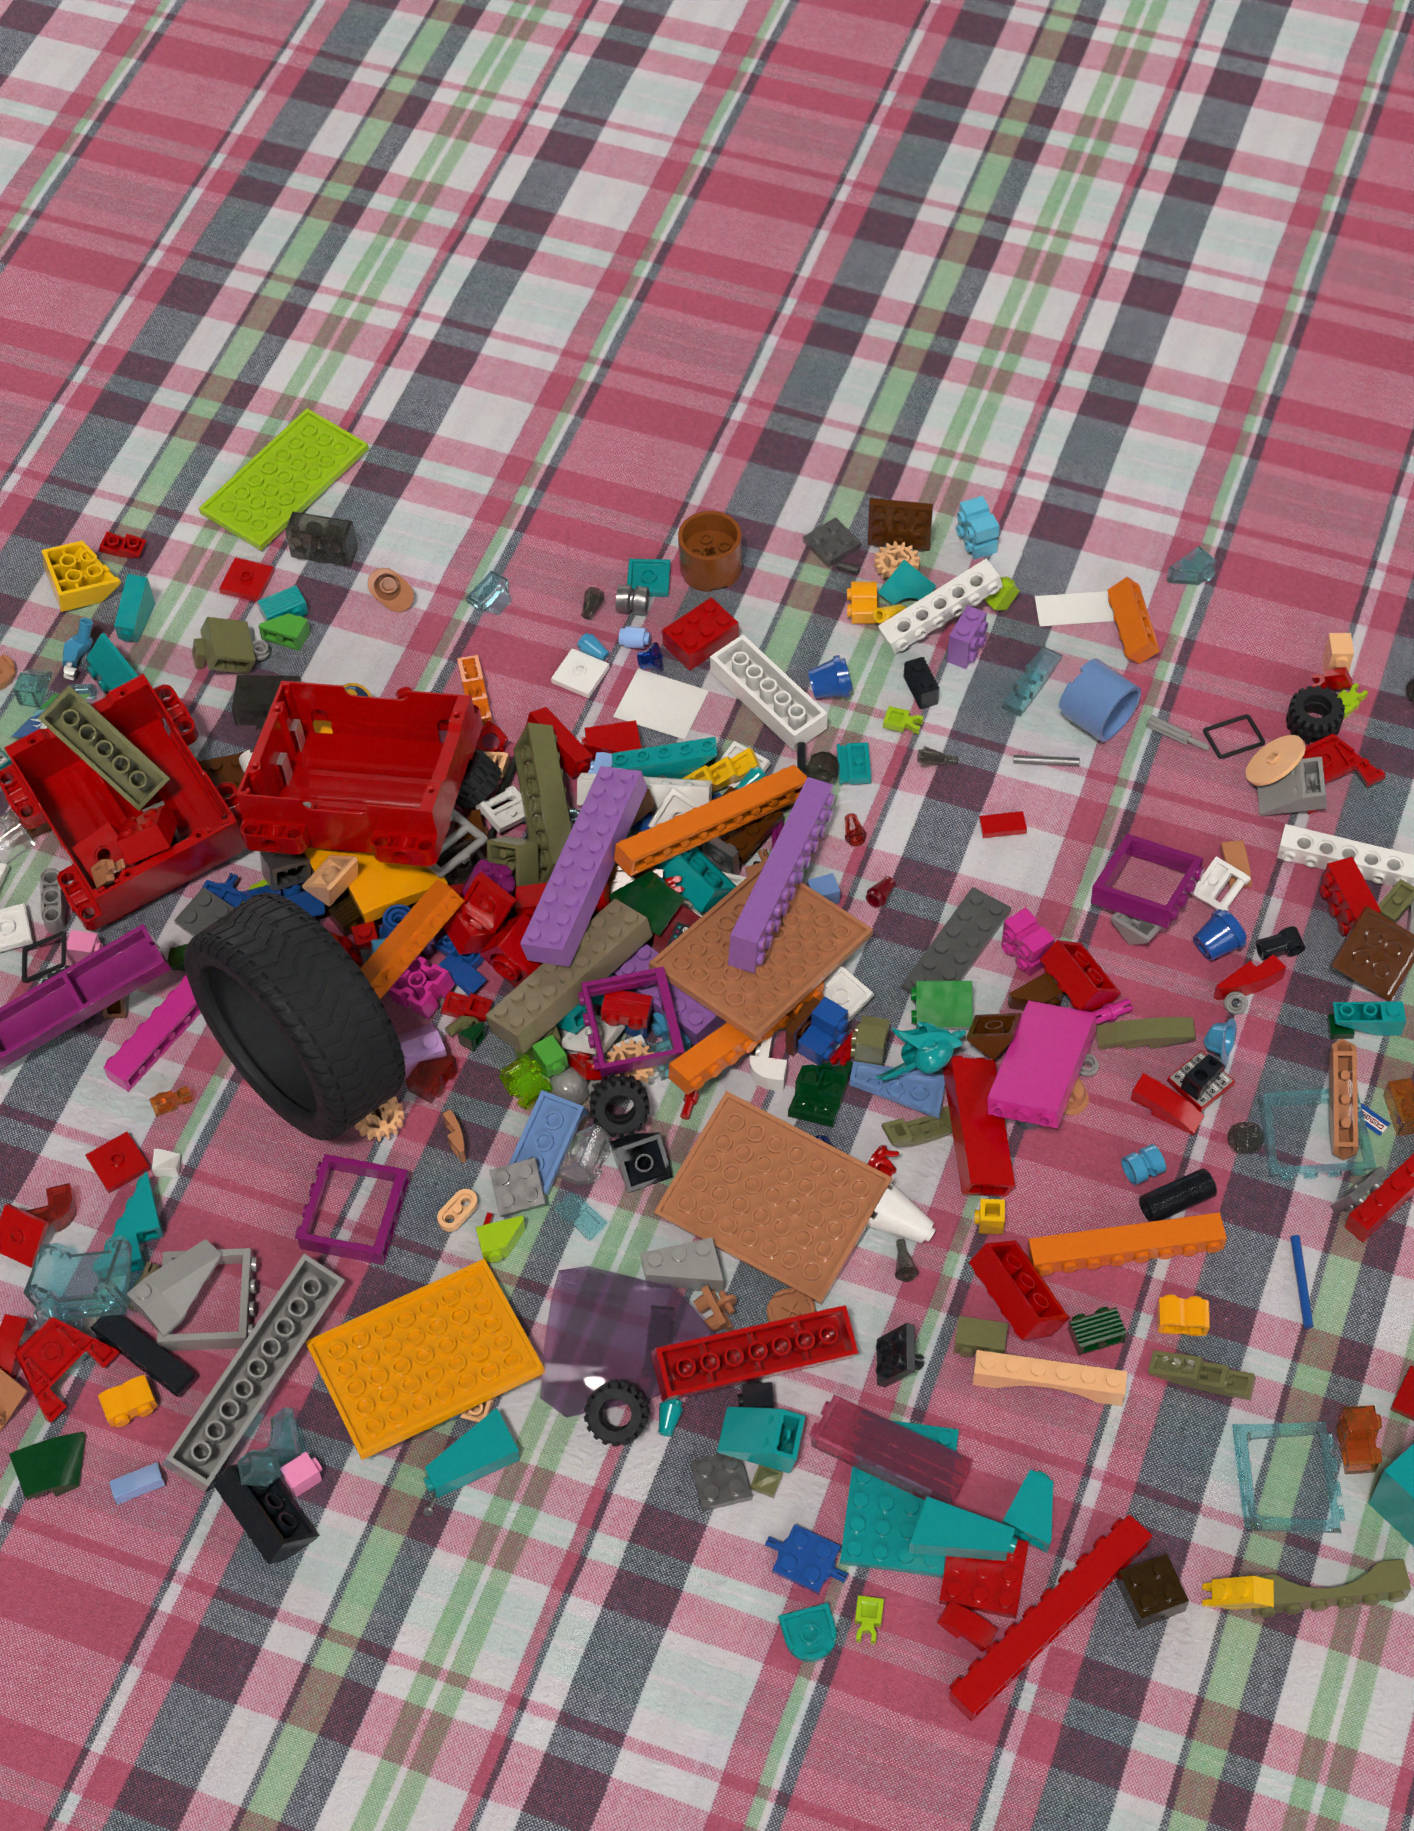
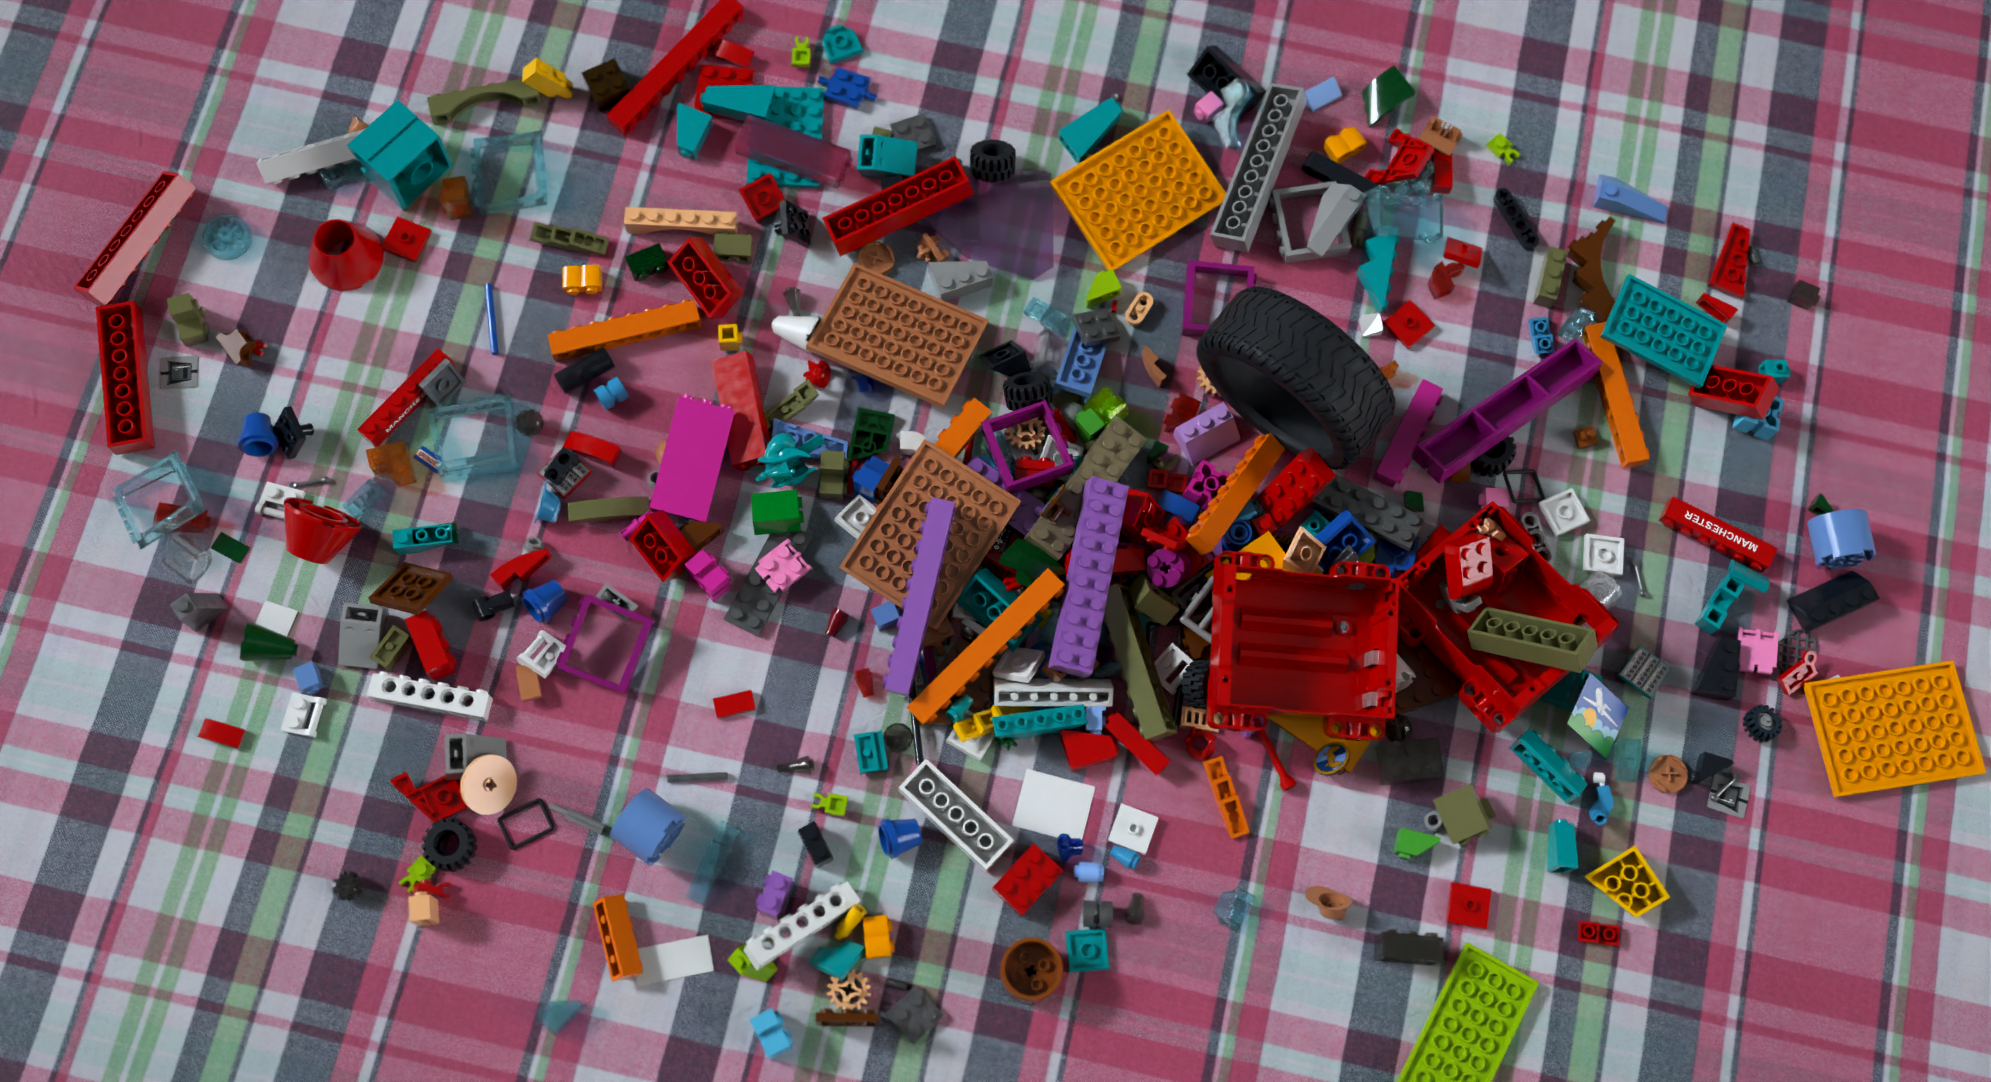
camera: 165 degrees right, 15 degrees up
(165, 908) = (1434, 539): none -> red slope
(282, 603) = (1425, 871): teal brick -> none
(611, 943) = (1060, 507): none -> reddish brown shield
(936, 1404) = (762, 197): none -> red plate
(940, 946) = (782, 567): none -> bright pink plate
(993, 1032) = (732, 486): reddish brown slope -> none
(1343, 1099) = (449, 453): nougat brick -> none

